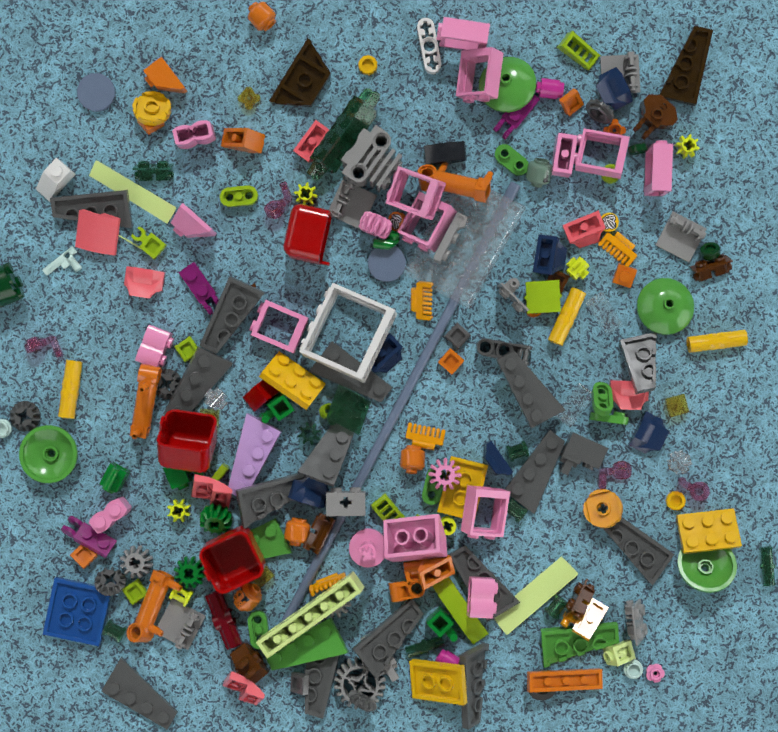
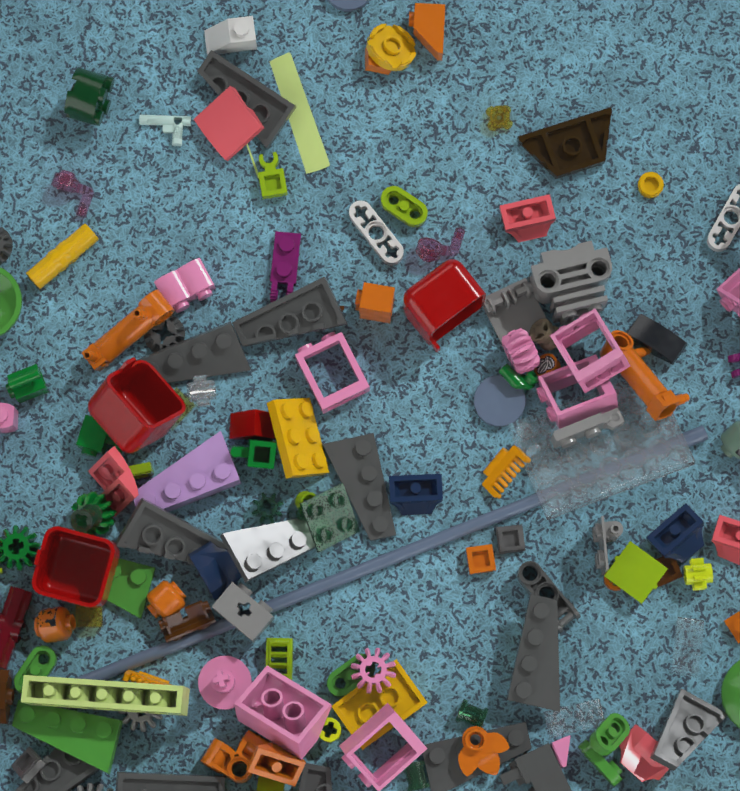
camera: 50 degrees right, 10 degrees down
(143, 281) = (232, 211): coral slope -> none
(161, 169) = (332, 103): clear green hinge -> none
(176, 516) = (66, 480): neon yellow gear -> none
(186, 348) = (216, 315): lime tile -> none
(189, 224) = (330, 193): bright pink slope -> none
(198, 133) = (406, 105): bright pink brick -> none
(214, 527) = (93, 514): none -> clear green bush
(243, 140) = (457, 154): orange slope -> none
(251, 222) = (359, 222): none -> white beam
(261, 16) = (582, 47): orange head -> none
(270, 266) = (375, 302): none -> orange brick
(305, 188) = (480, 257): neon yellow gear -> none
(322, 314) = (412, 474): white window -> none
(343, 134) = (566, 231): clear green hinge -> none
(378, 204) = (541, 332): none -> dark tan wheel
(412, 459) = (352, 627): orange head -> none
(425, 441) = (380, 620): light orange piece -> none
(495, 459) = (440, 704): dark blue slope -> none
(510, 161) = (721, 403): bright green plate -> none
(542, 468) = (482, 755): none -> orange plate
(567, 316) = (644, 616): yellow axle -> none
(582, 429) = (560, 749): none -> bright pink slope

